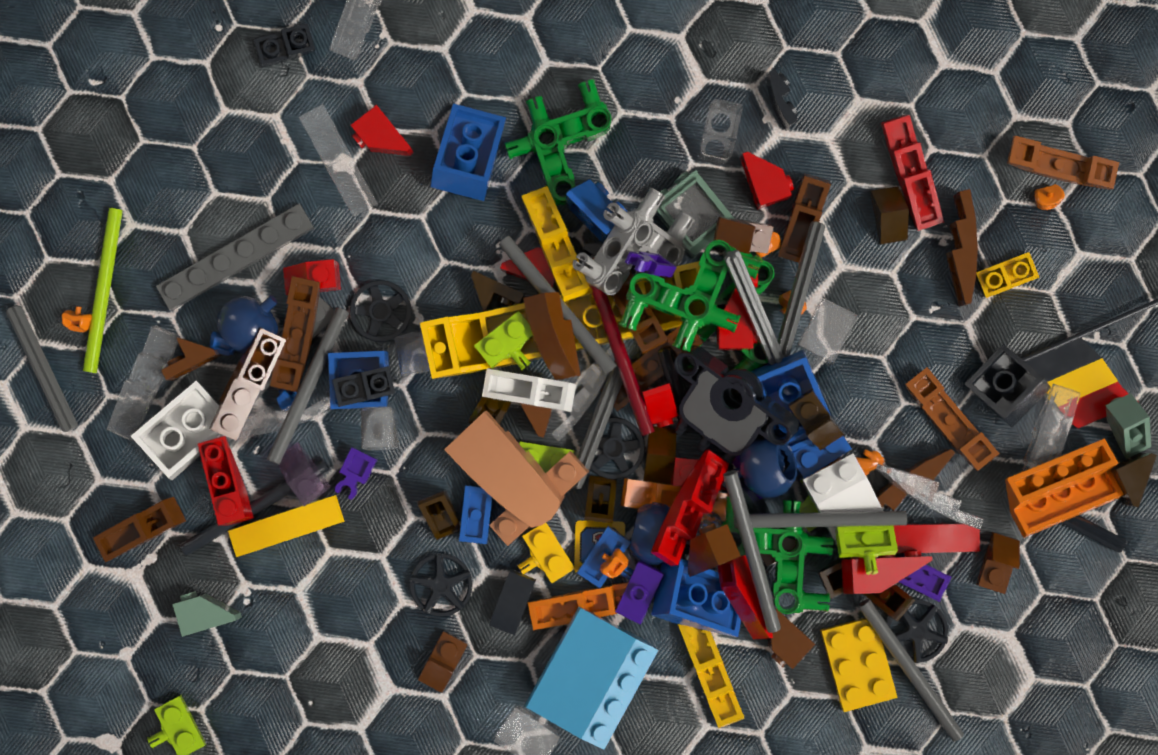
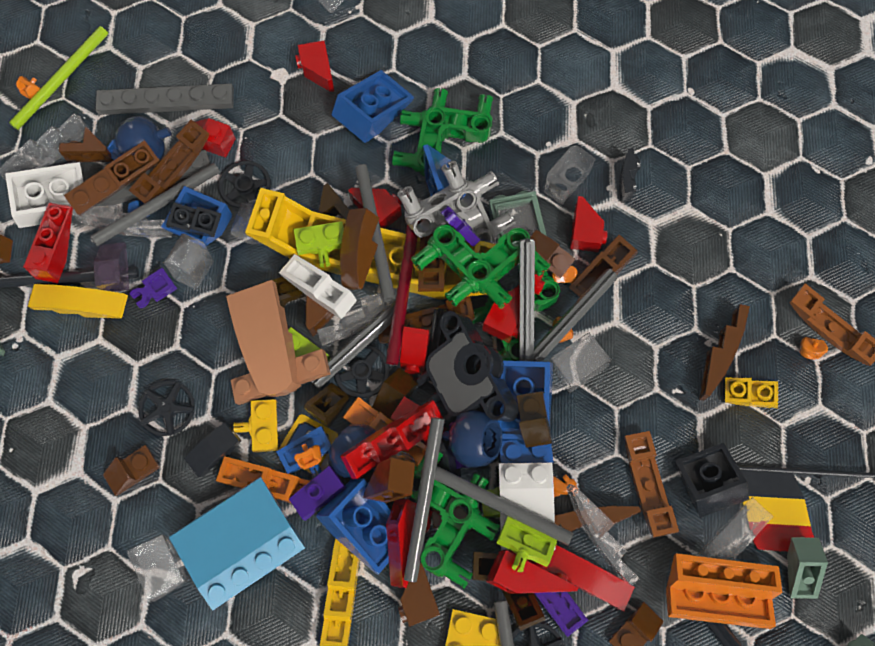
camera: 30 degrees right, 15 degrees down
(338, 160) = (276, 68): clear slope -> none
(440, 514) = (197, 349): dark brown slope -> none
(475, 515) = (224, 367): blue plate -> none
(555, 243) = (399, 177): yellow slope -> none
(890, 215) = (674, 301): dark brown slope -> none
(912, 172) = (707, 277): red slope -> none
(1133, 477) = (790, 616): dark brown slope -> none

